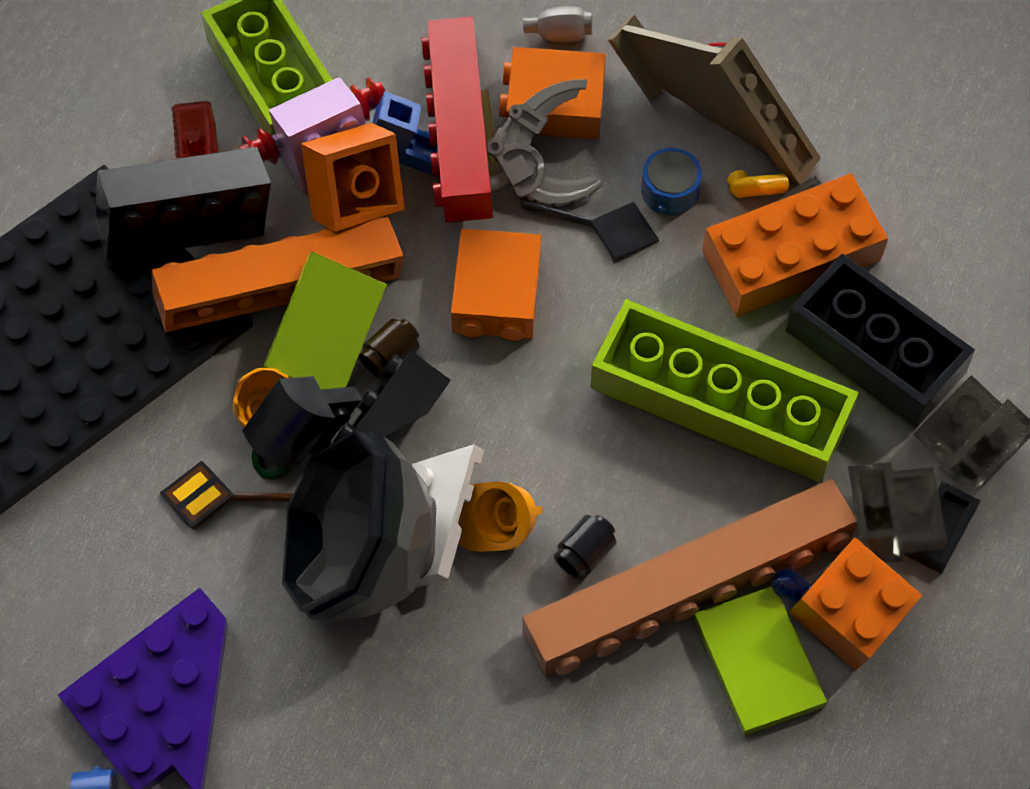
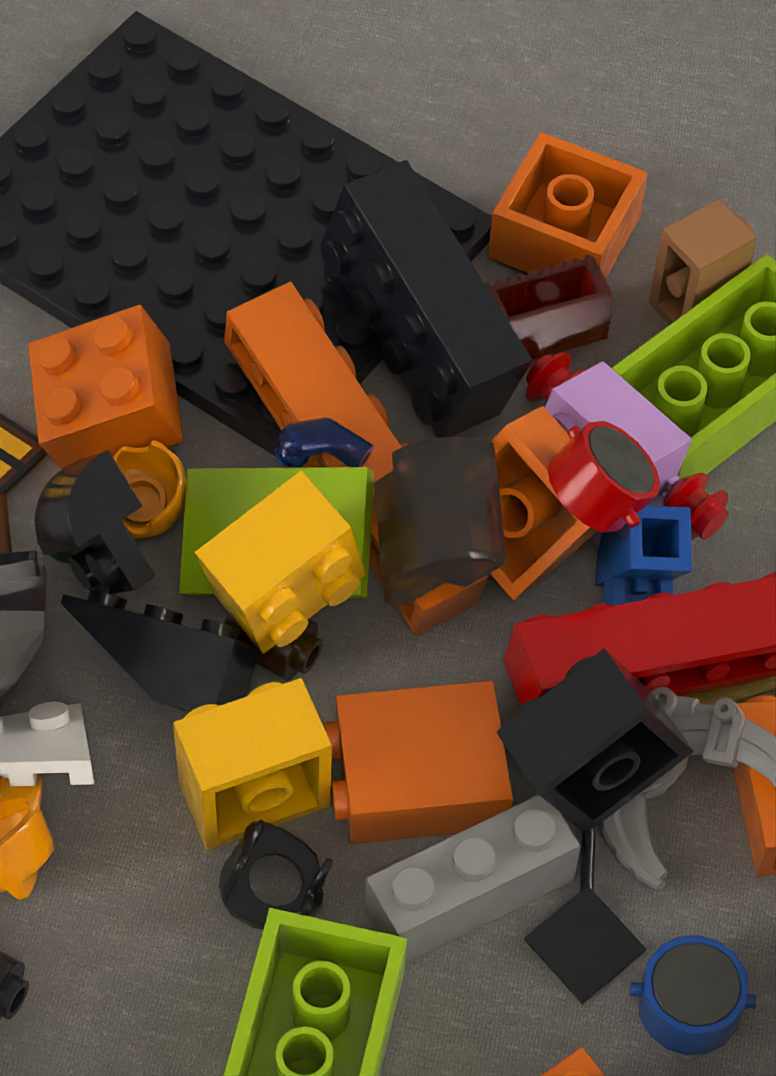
camera: 75 degrees right, 5 degrees down
(121, 117) = (566, 207): none -> orange brick
(186, 407) = (104, 387): none -> orange brick
(194, 53) = (699, 258): none -> medium nougat brick
(277, 277) = (321, 436): none -> clear blue arm
(363, 219) = (438, 517): none -> clear smoke brick
(369, 117) = (603, 476): none -> red piece
(376, 305) = (283, 563): none -> yellow brick
(485, 364) = (253, 761): none -> yellow brick
(523, 176) = (594, 740): none -> black brick
(543, 390) = (266, 840): none -> black piece
(580, 271) = (473, 877): none -> light grey brick

